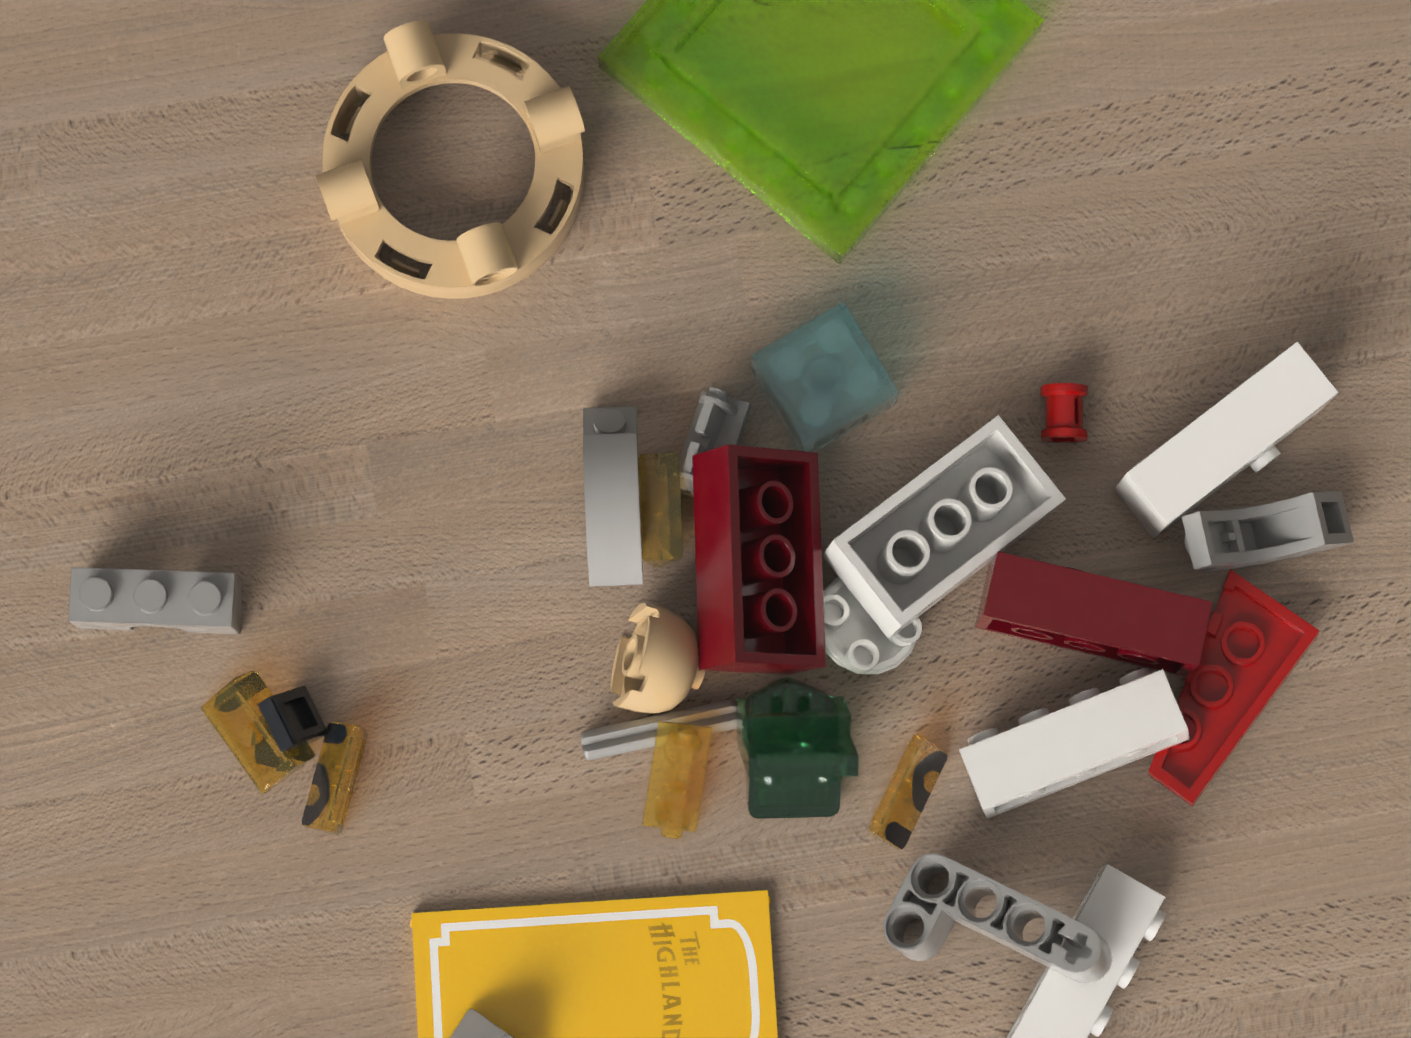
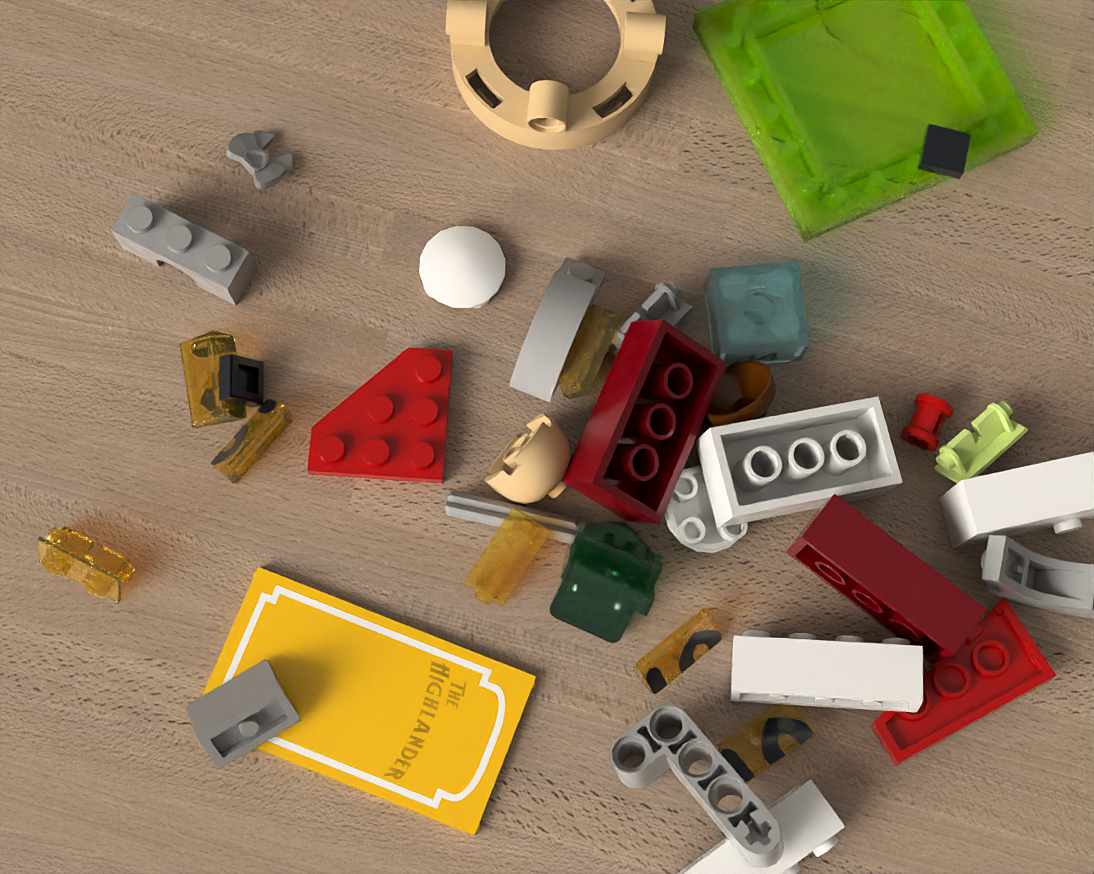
camera: 20 degrees right, 5 degrees down
(167, 452) = (251, 152): none -> light grey piece
(197, 999) = (66, 555): none -> clear yellow hinge
(473, 474) = (462, 267): none -> white dish
(478, 687) = (390, 424): none -> red plate
(842, 467) = (740, 386): none -> reddish brown piece
(949, 95) = (944, 151): none -> black tile
(1042, 846) = (765, 741): none -> slope
(1128, 426) = (972, 453): none -> yellowish green hinge

